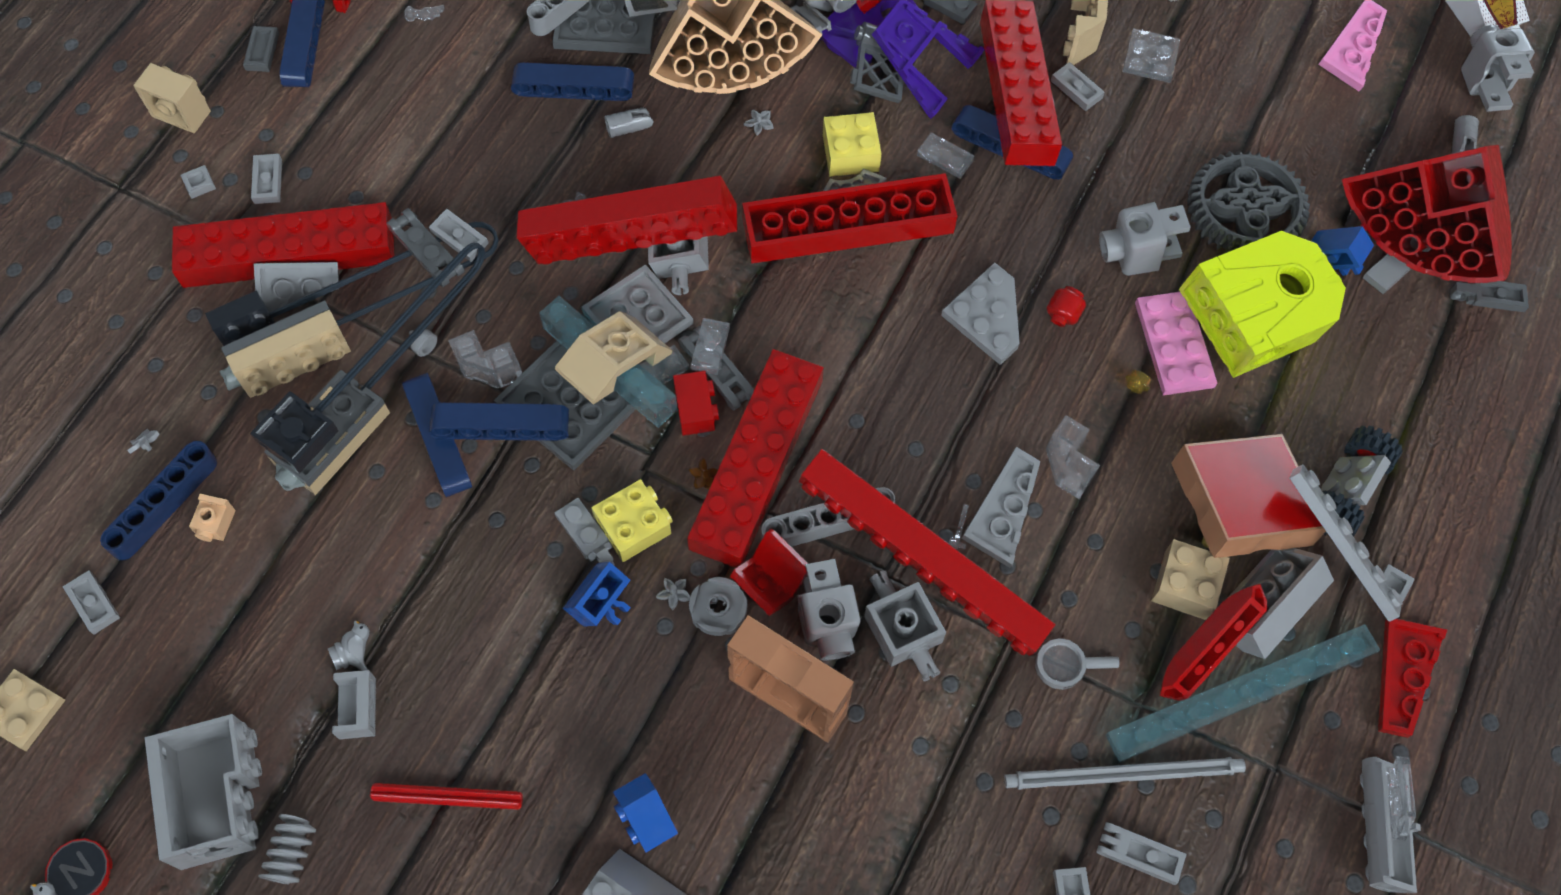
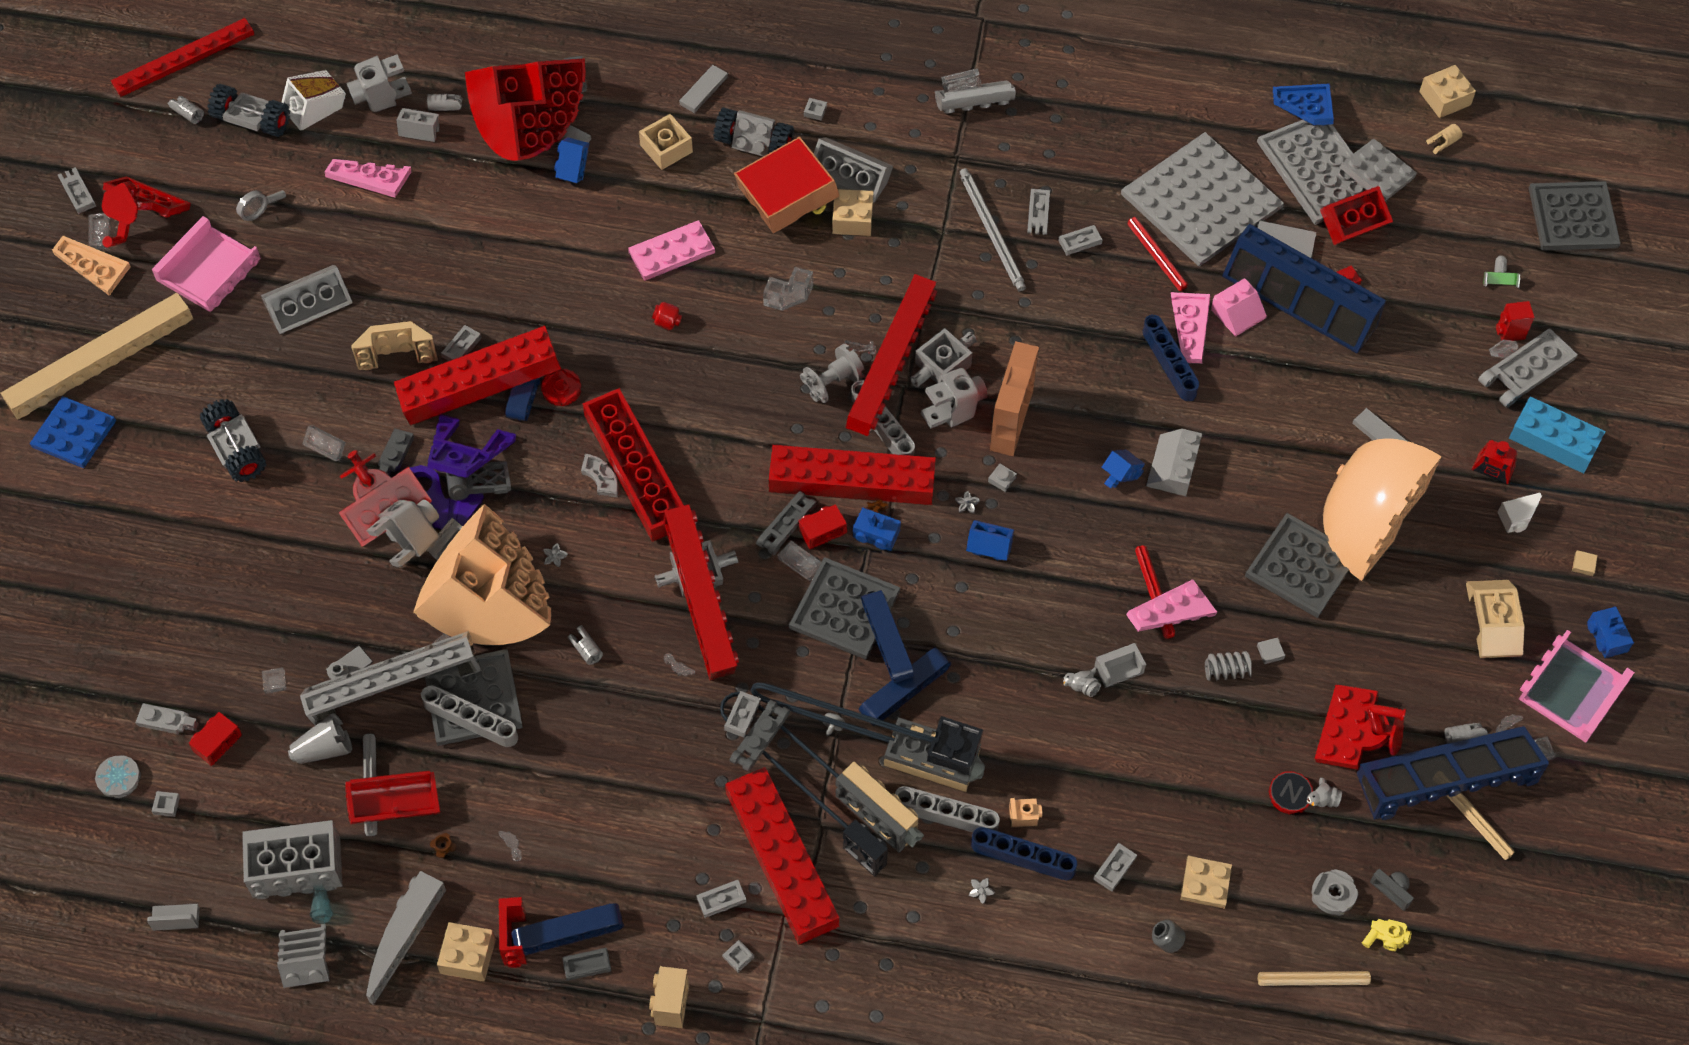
camera: 105 degrees left, 5 degrees down
(202, 791) = (1213, 725): light grey piece -> none
(240, 437) = (958, 808): none -> light grey beam
(288, 282) = (815, 839): light grey wing -> none
(406, 813) = (1174, 606): none -> bright pink wing
(494, 366) = (836, 682): clear brick -> none
(572, 81) = (556, 698): dark blue beam -> none
(585, 531) = (944, 568): light grey hinge -> none
(607, 352) = (816, 567): tan slope -> none
(632, 519) = (928, 536): light yellow brick -> none
(634, 385) = (813, 582): clear light blue brick -> none
(646, 300) = (761, 586): light grey plate -> none
(667, 464) = (876, 529): none -> blue brick
(697, 650) = (1002, 477): none -> light grey plate
(710, 346) = (777, 522): clear plate -> none
(727, 620) = (968, 482): light grey plate -> none
(772, 573) = (936, 441): red bracket -> none
(851, 144) = (563, 481): light yellow brick -> none
(923, 488) = (846, 365): none -> light grey piece
(945, 155) = (553, 418): clear plate -> none
(988, 313) = (683, 365): light grey plate -> none
(990, 177) = (561, 387): none -> red tile
(1001, 516) = (836, 324): light grey wing -> none
(1064, 663) = (933, 269): piece -> none
(1138, 381) = (712, 265): clear yellow plate -> none
(1142, 238) = (597, 279): light grey piece -> none
(1151, 55) = (417, 302): clear plate -> none
(1213, 642) = (902, 197): red brick -> none
(1241, 693) = (918, 176): clear light blue plate -> none
(1246, 200) = (543, 229): dark grey gear -> none
(1265, 299) = (633, 194): neon yellow piece -> none
(1340, 532) = (802, 128): light grey plate -> none
(1356, 369) = (665, 141): none -> tan brick
(1406, 672) = (860, 97): red wing -> none
(1430, 102) = (418, 124): none -> light grey hinge
(1453, 448) = (703, 88): none -> light grey tile

